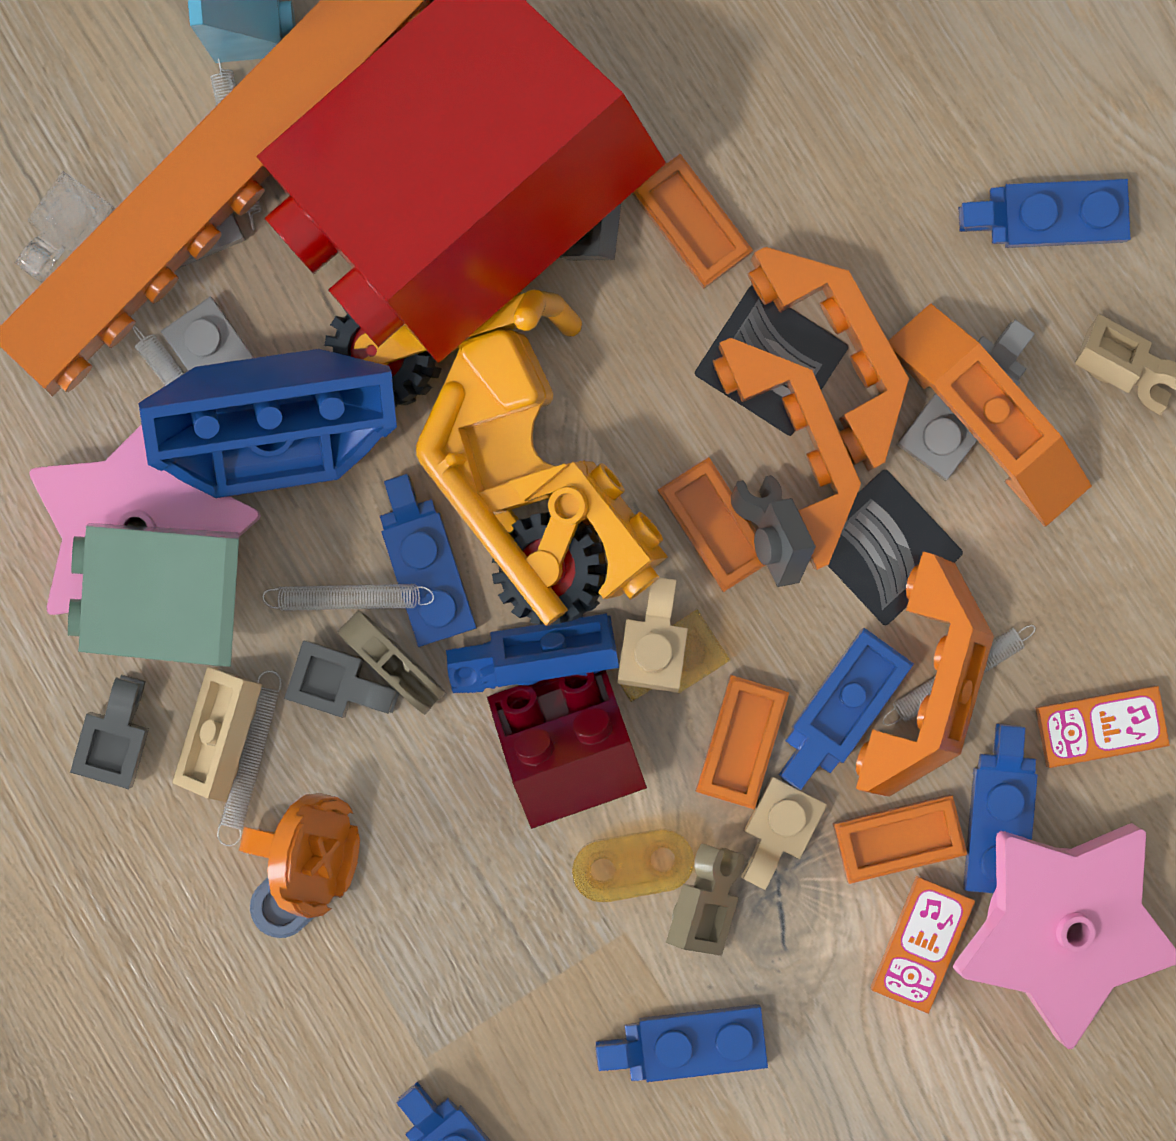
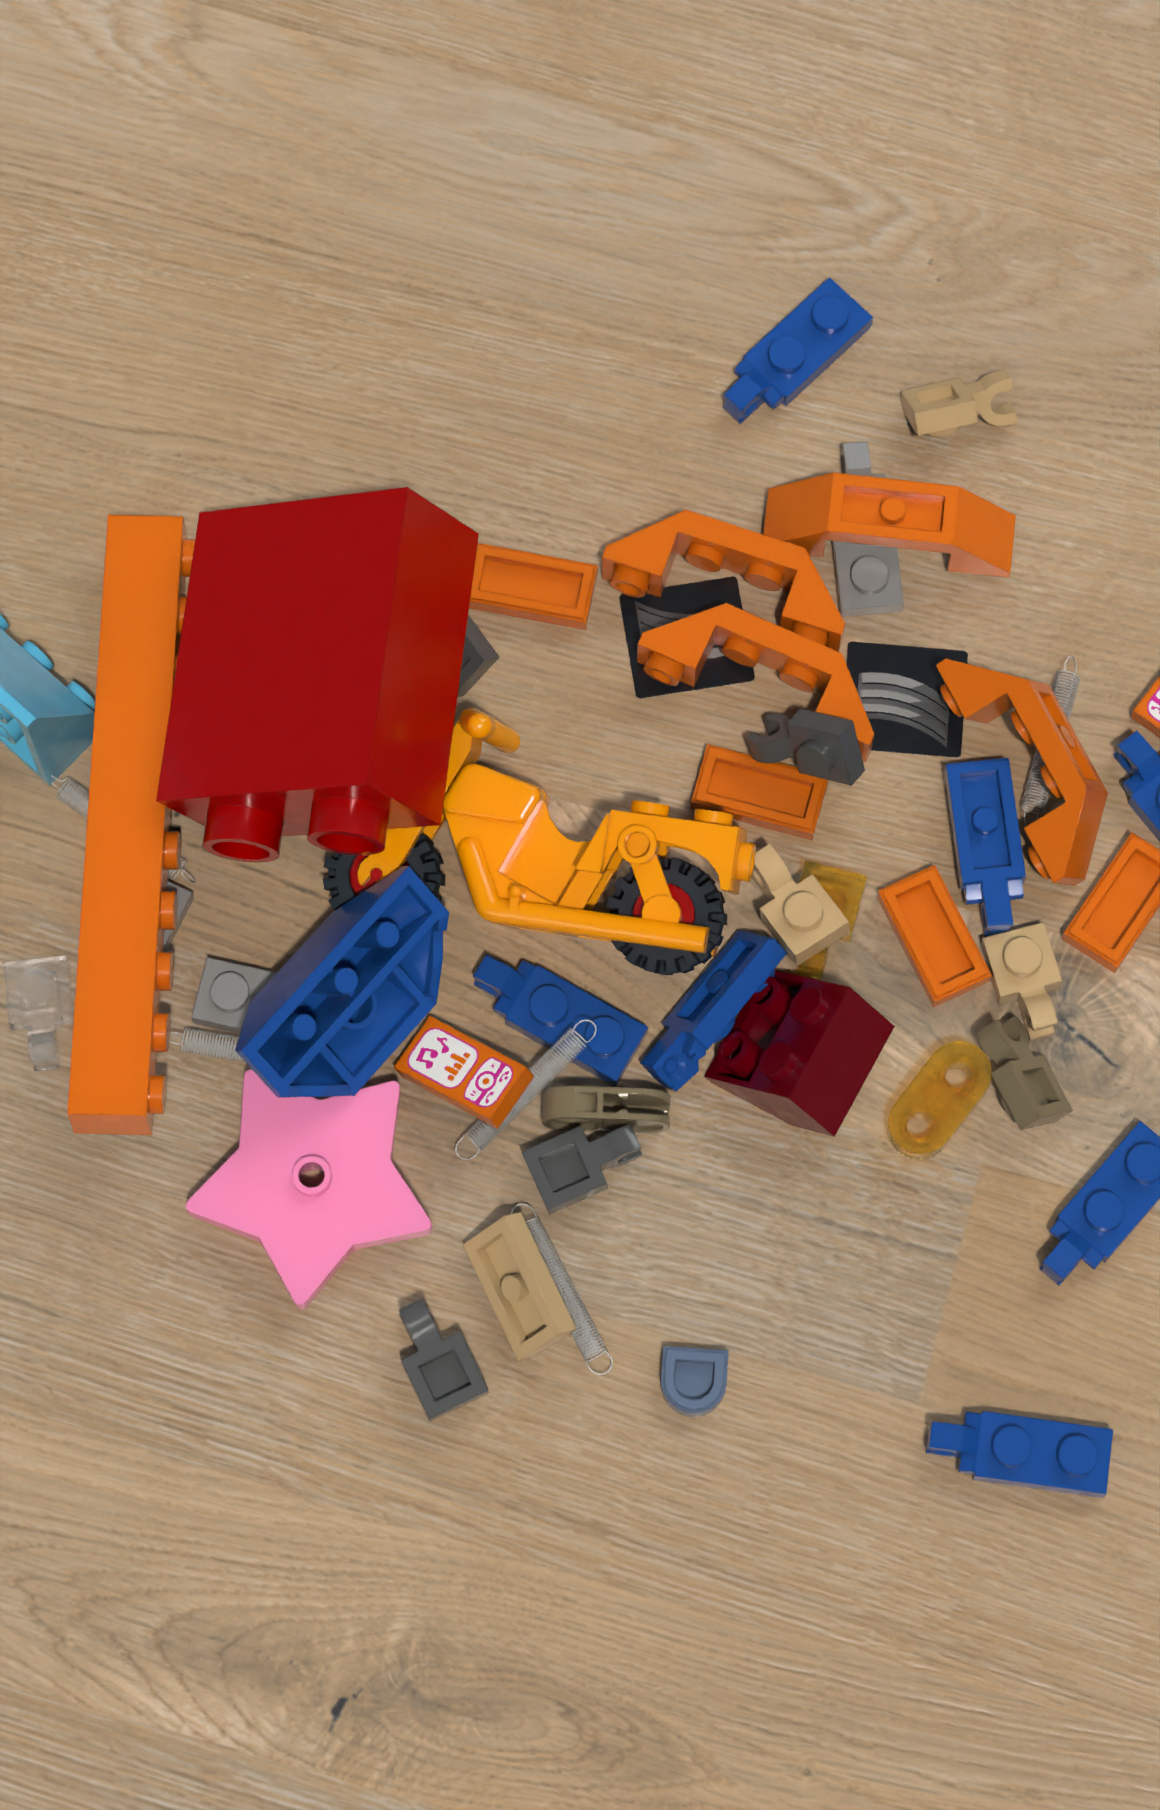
camera: 40 degrees left, 15 degrees down
(155, 593) = (379, 1191): sand green slope -> none
(308, 854) = (679, 1308): orange tile -> none
(314, 546) = (463, 1072): none -> tile

